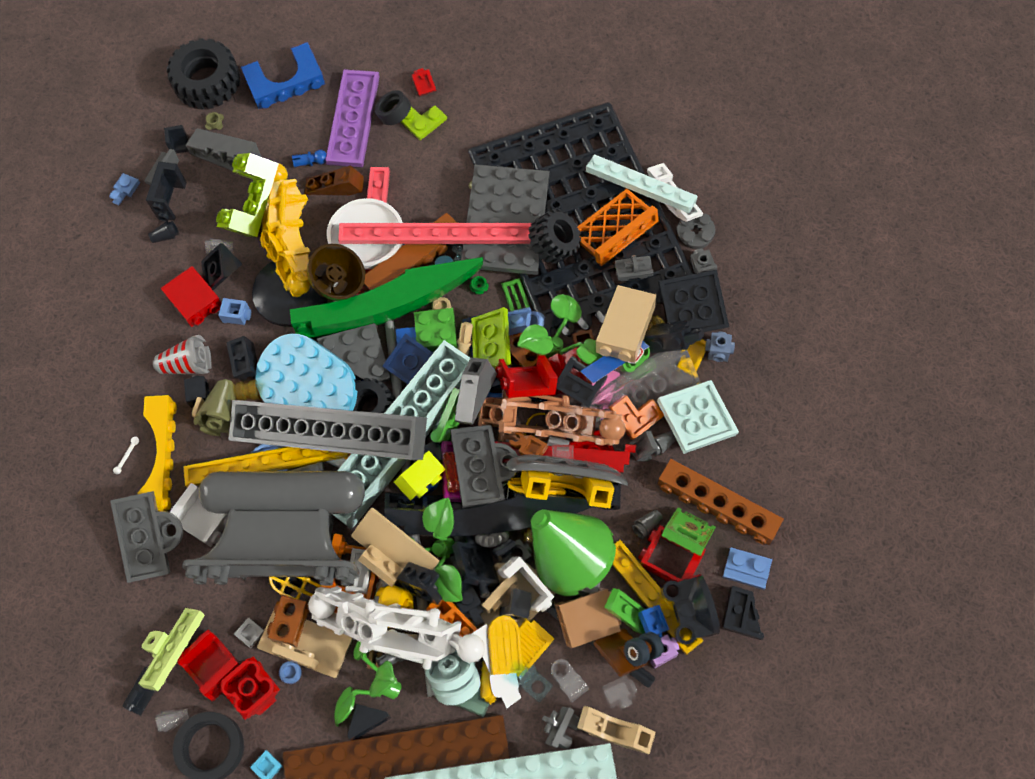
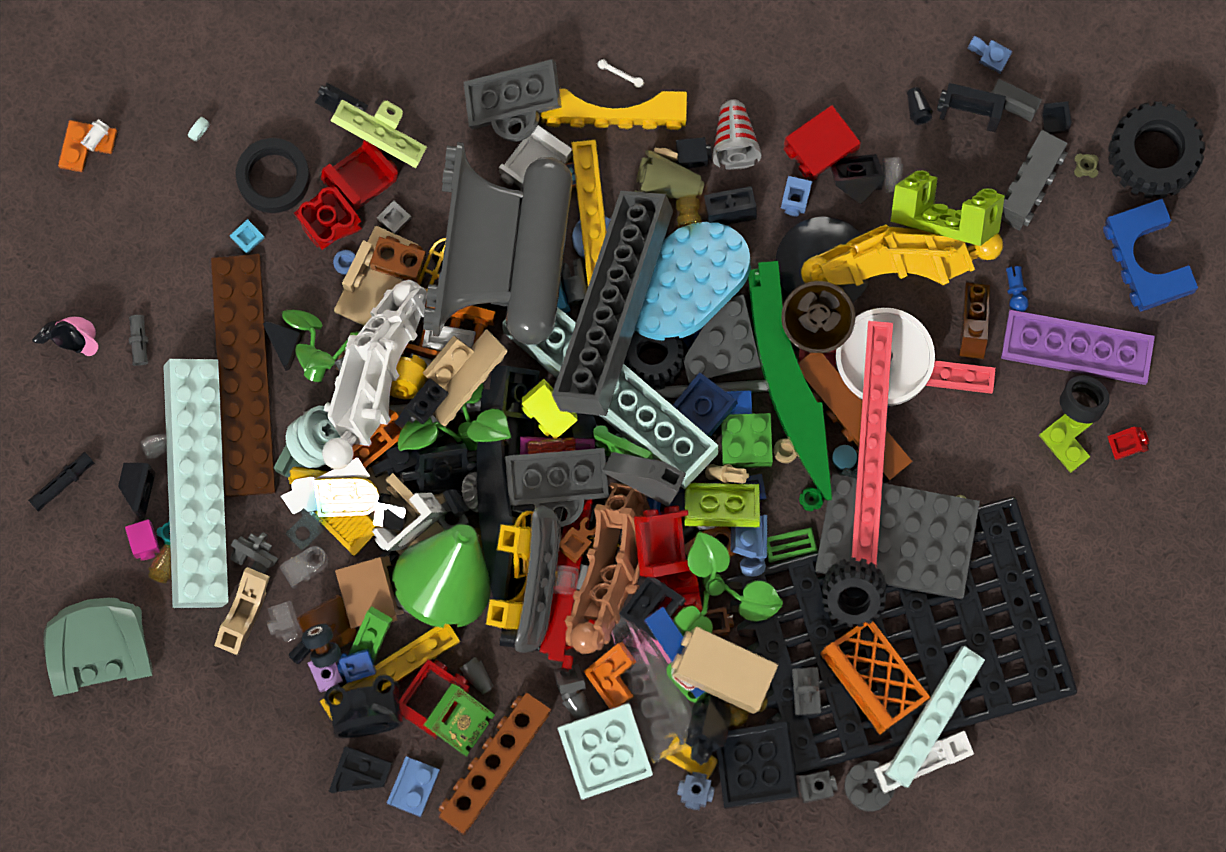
camera: 90 degrees right, 10 degrees up
(171, 719) = (306, 135): clear cone -> none

